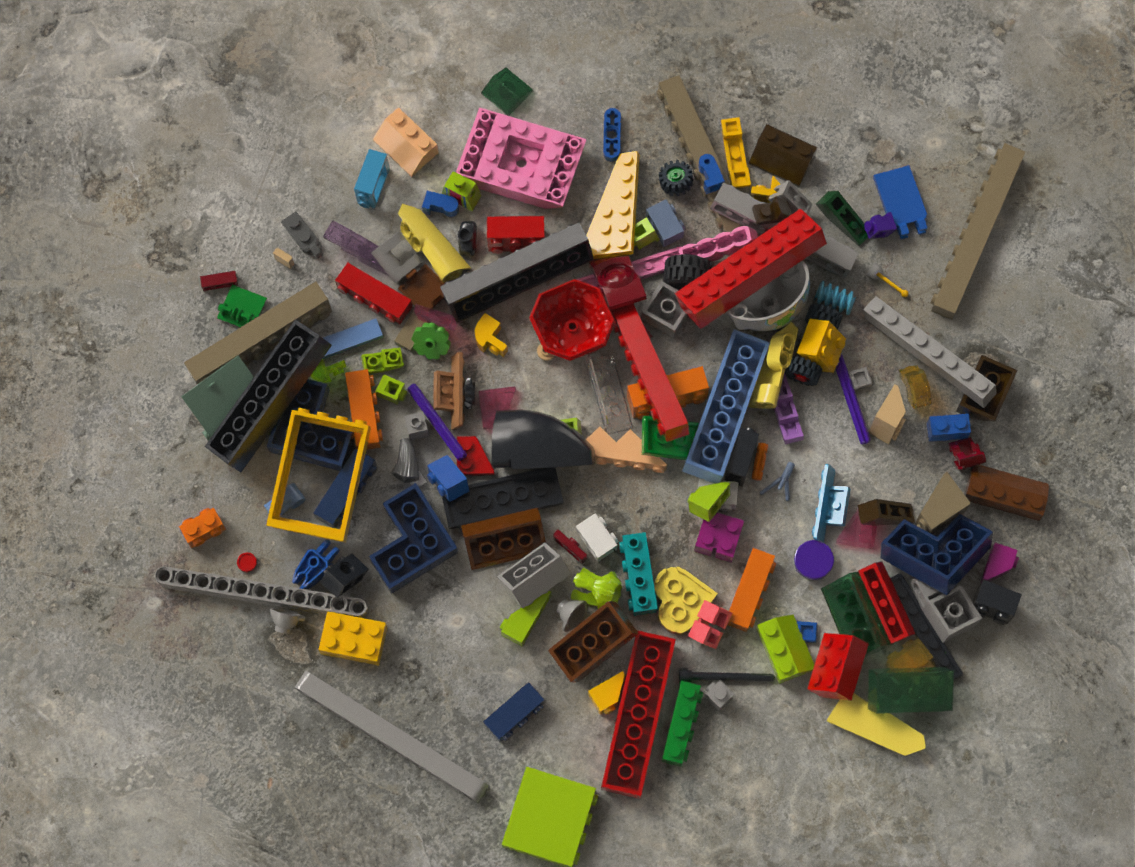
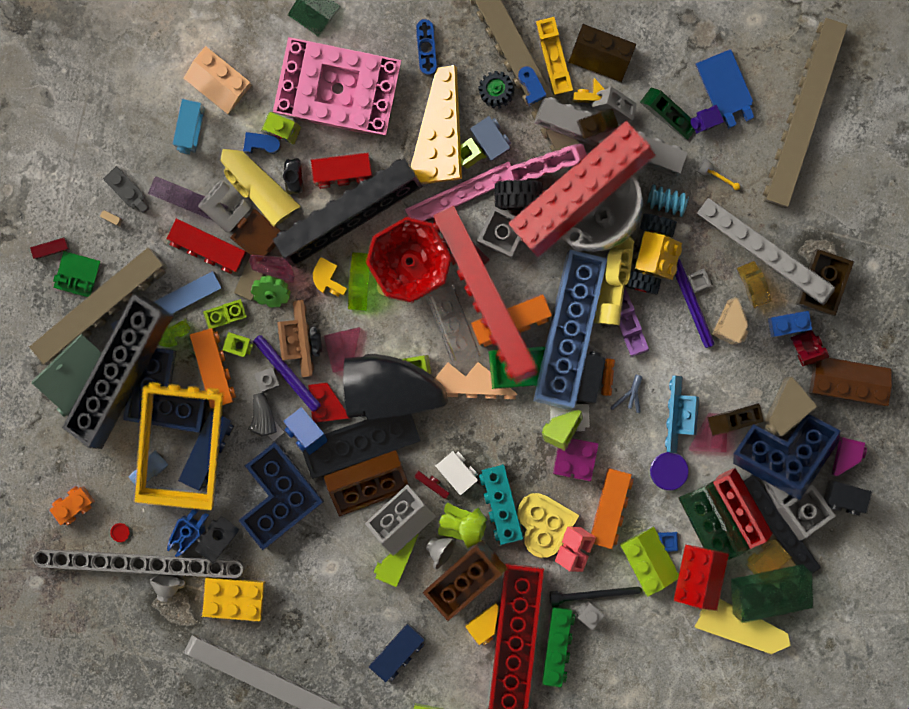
camera: 10 degrees left, 15 degrees up
(519, 344) = (358, 282): none -> clear neon green slope
(618, 281) = (449, 210): dark red slope -> none

